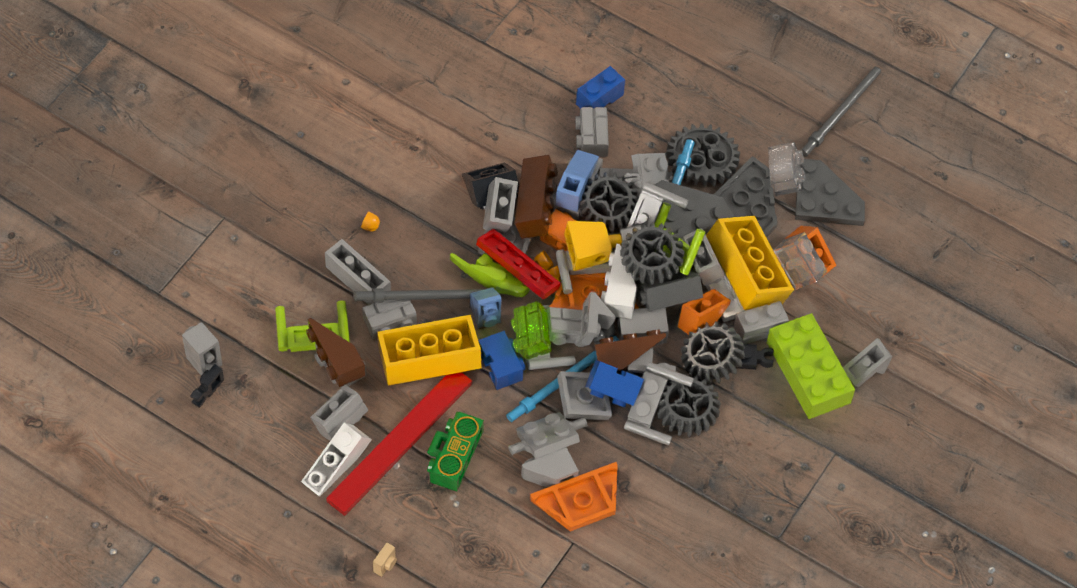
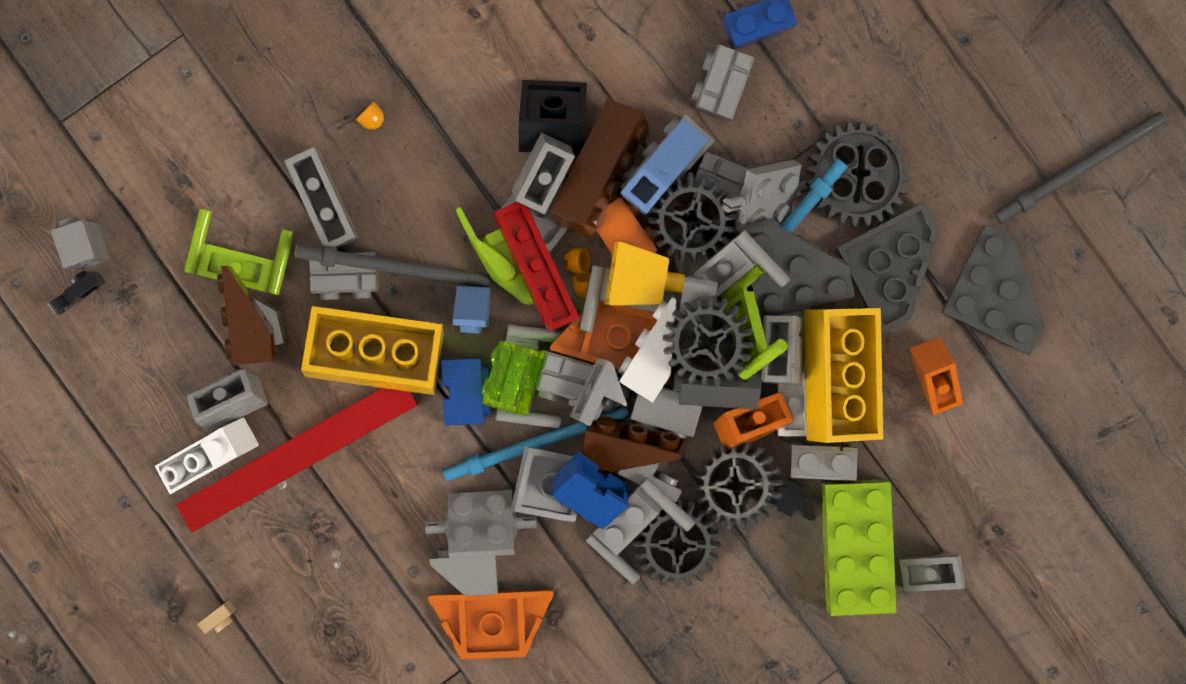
camera: 25 degrees right, 30 degrees up
(460, 445) = (370, 490): green piece -> none
(786, 169) = (959, 241): clear brick -> none
(800, 260) = (911, 398): clear brick -> none

